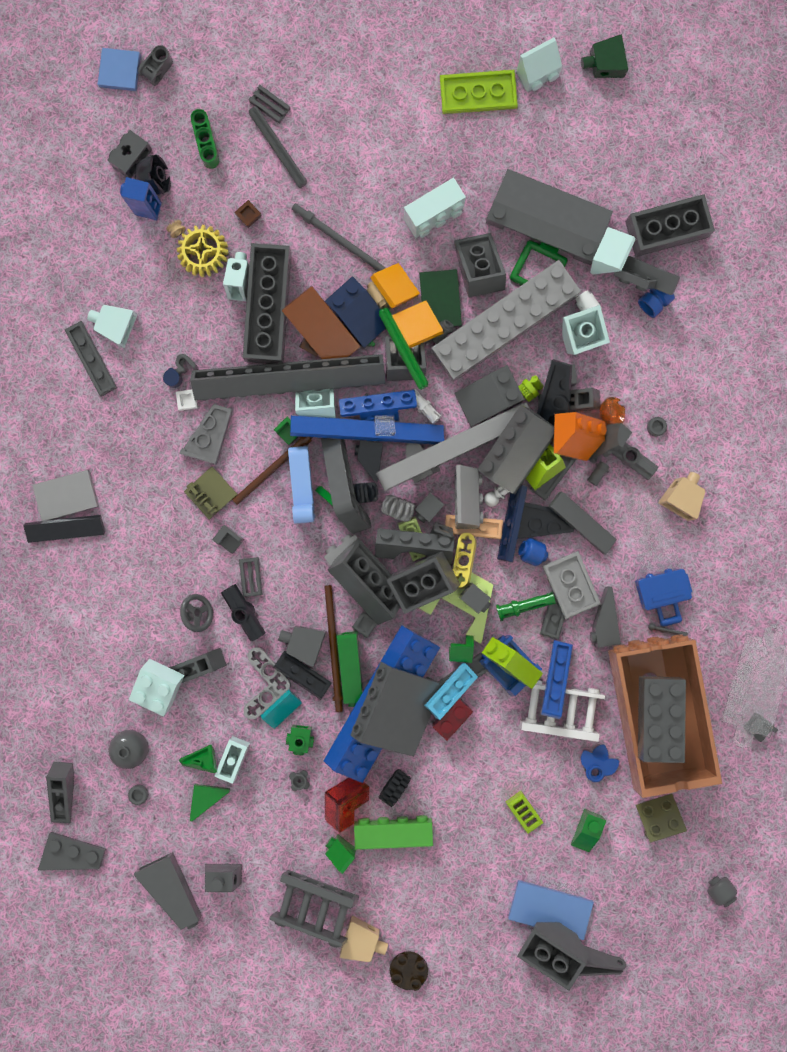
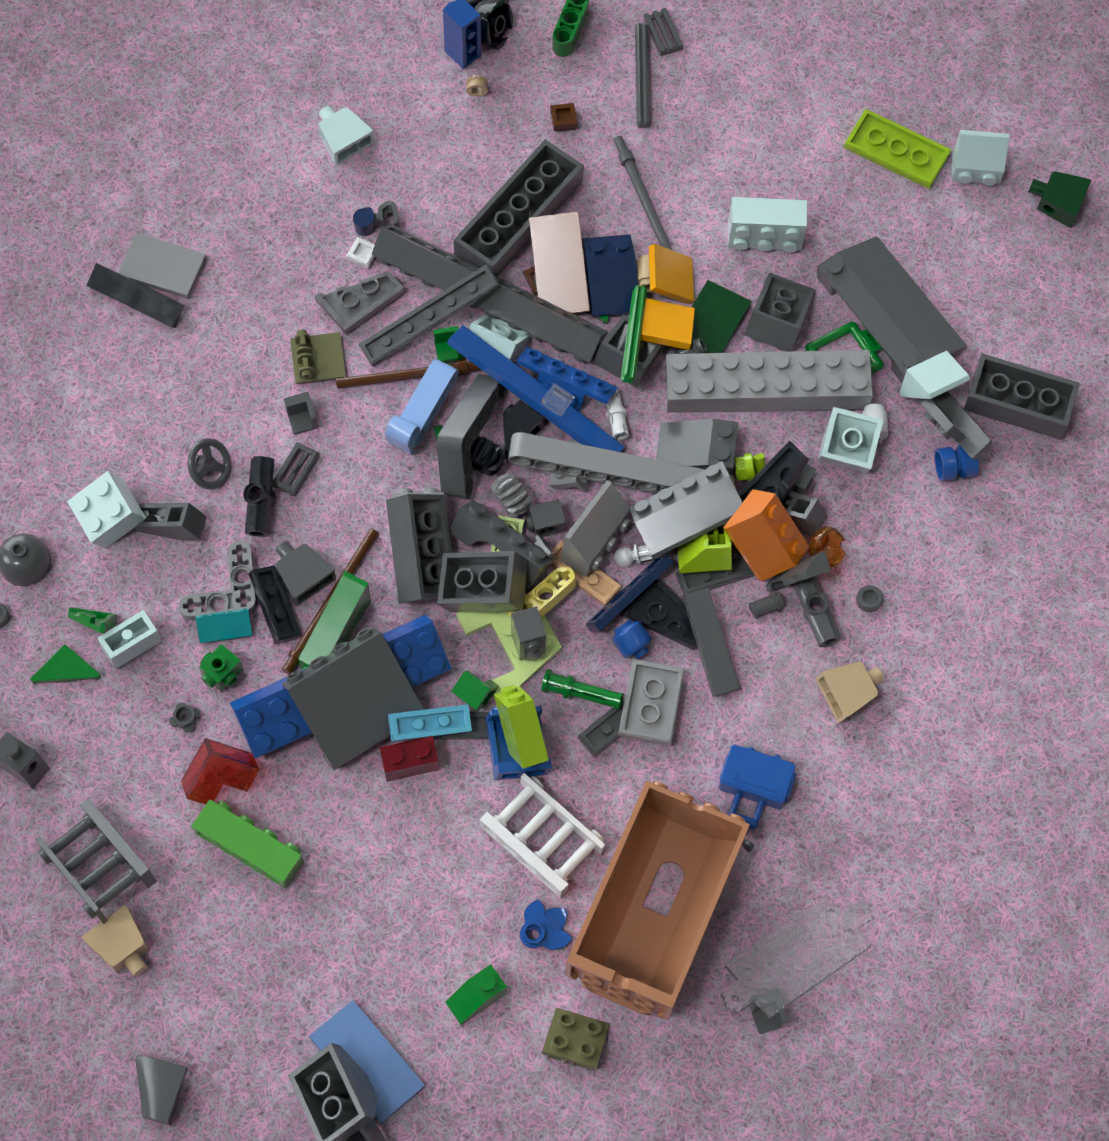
camera: 30 degrees right, 20 degrees down
(91, 358) = (293, 154): dark grey tile -> none
(218, 253) = (491, 129): light yellow gear -> none
(236, 277) = (503, 163): light aqua torso -> none
(263, 419) = (429, 315): none -> dark grey tile
(340, 852) = (172, 822): green slope -> none
(364, 624) = (384, 598): dark grey tile -> none
(394, 787) = (287, 789): black tyre -> none
(408, 970) = (147, 1017): dark brown dish -> none
(444, 1005) = (159, 1088): none -> dark grey slope
(516, 799) = (422, 899): lime slope -> none
(556, 679) = (560, 790): blue tile -> none
(605, 624) = (665, 764): dark grey slope -> none
(661, 719) = (648, 878): dark grey brick -> none

